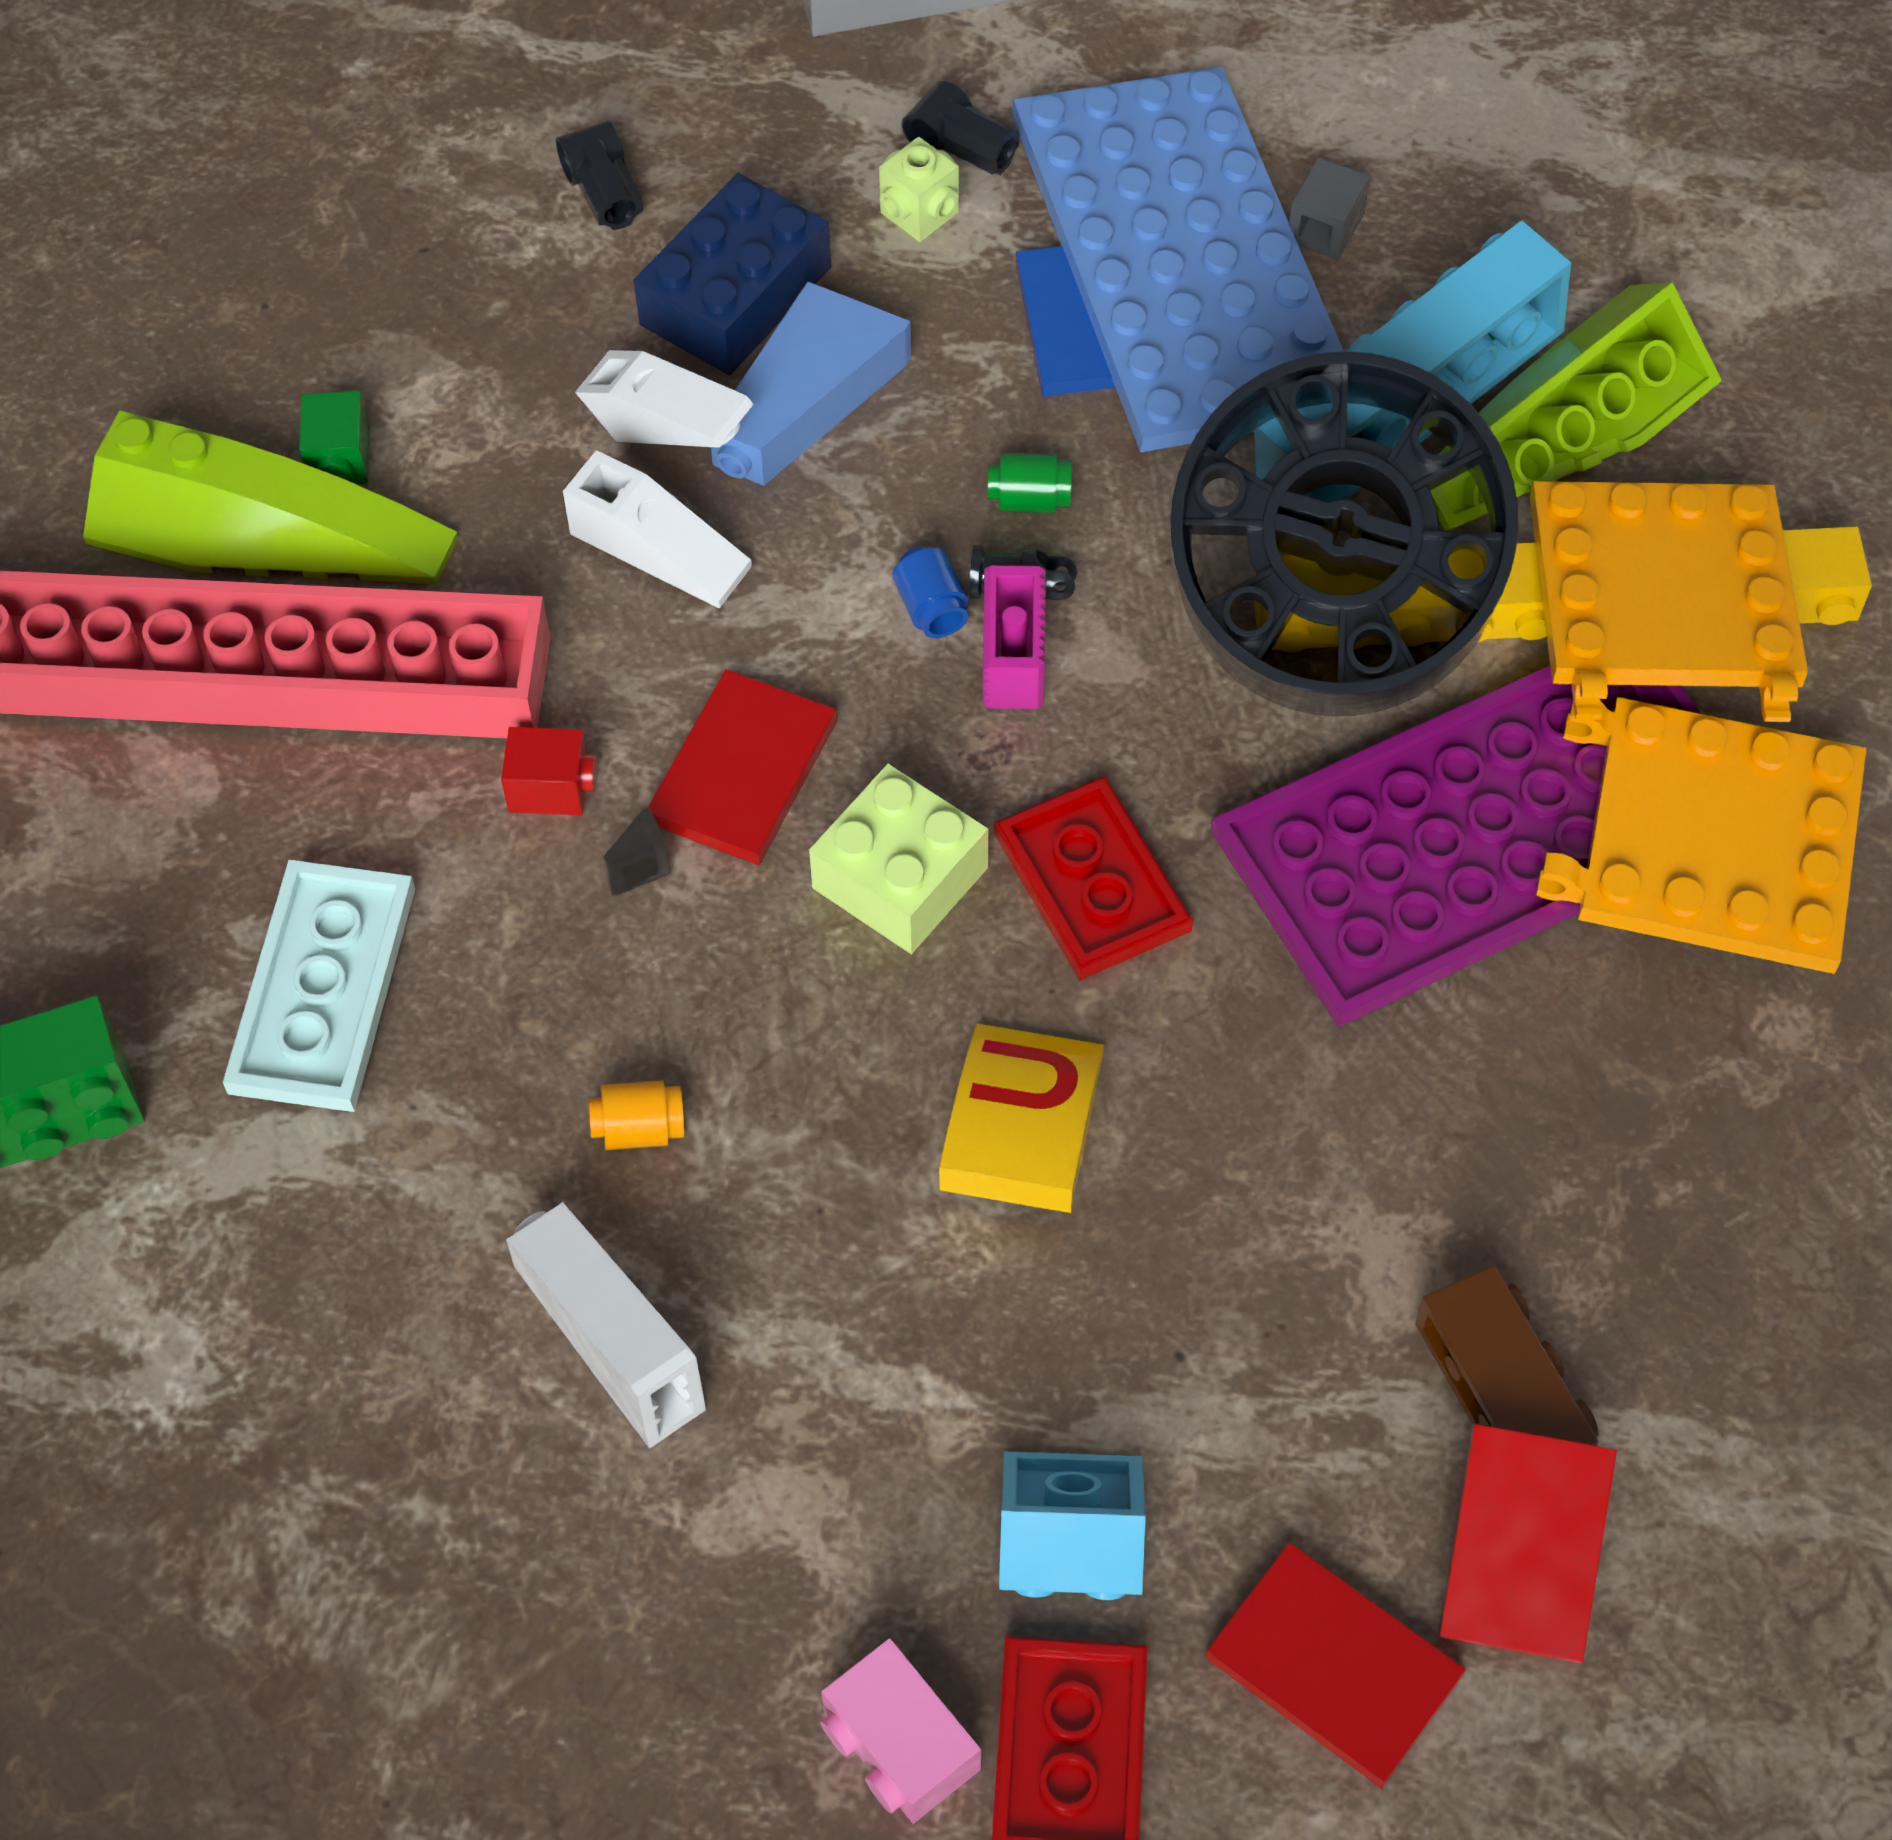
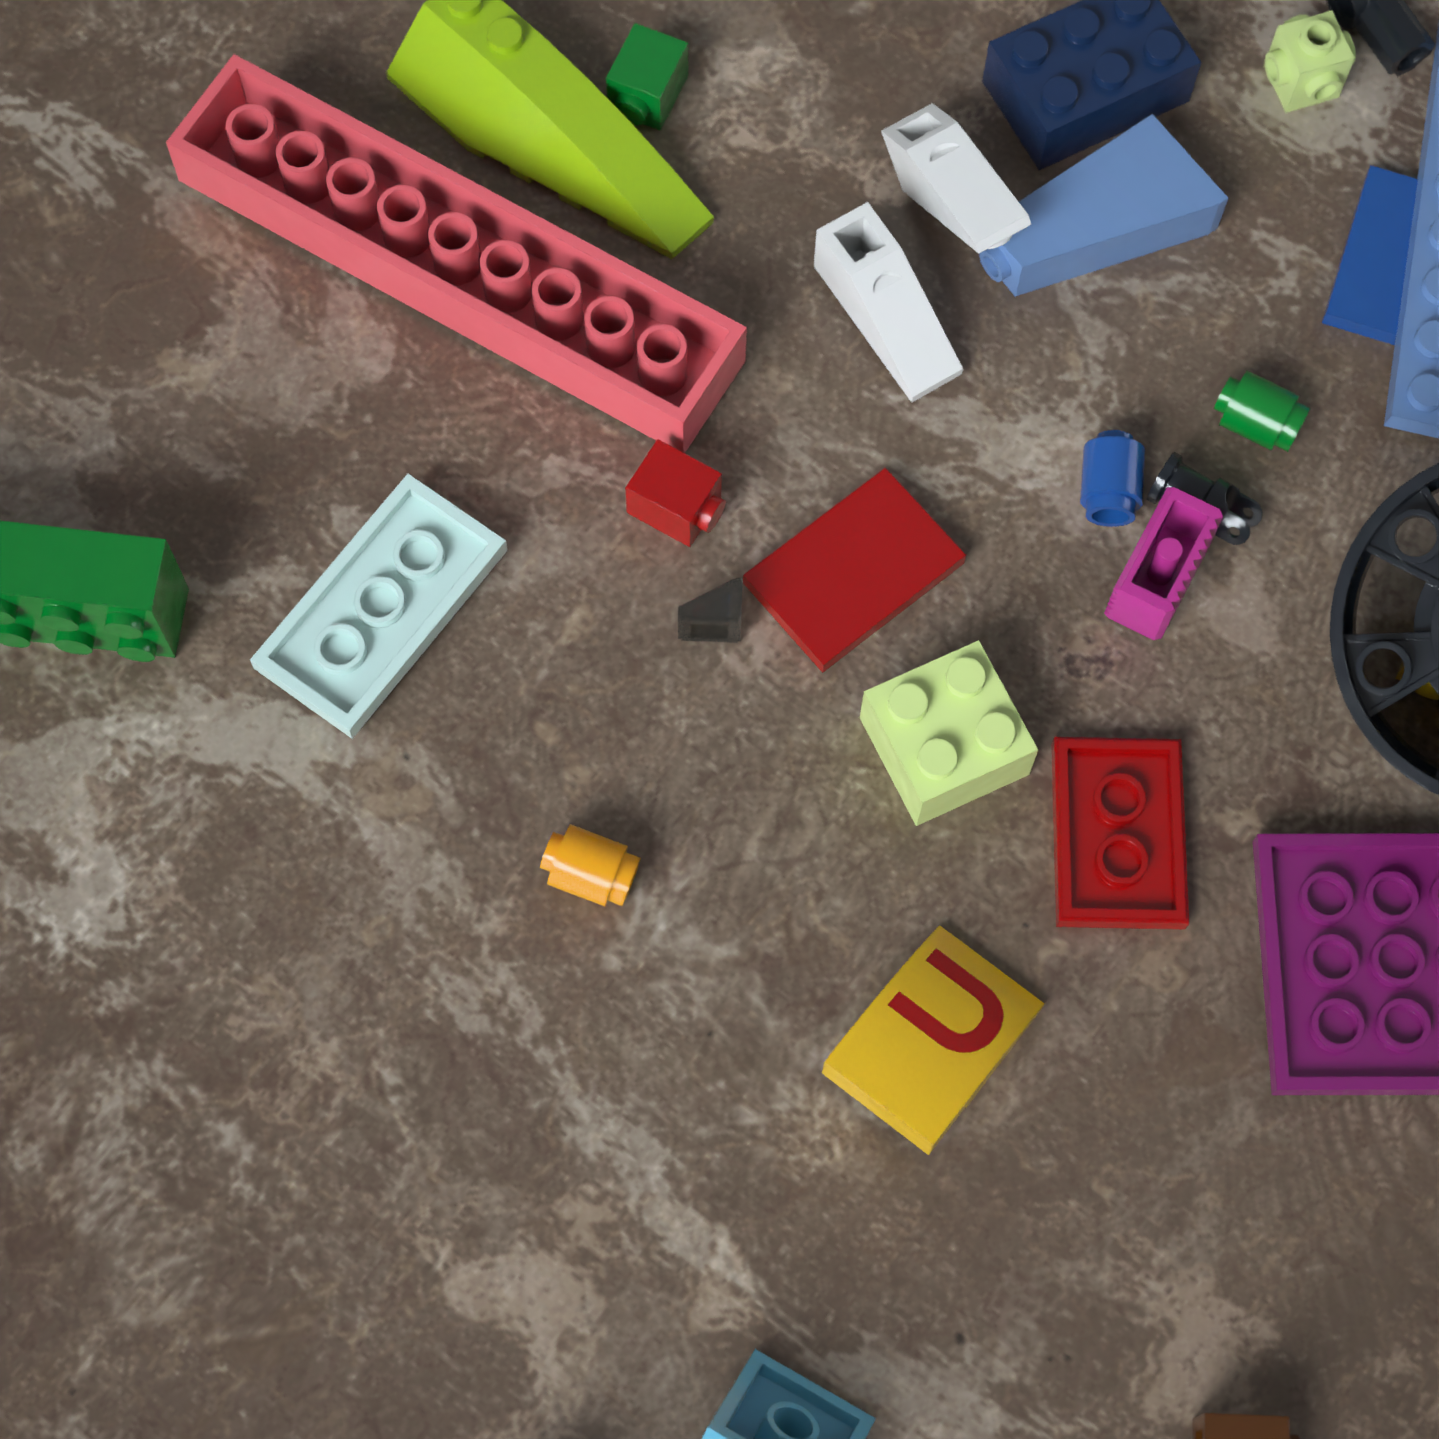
camera: 25 degrees right, 10 degrees up
(609, 1323) = (462, 1052): white slope -> none

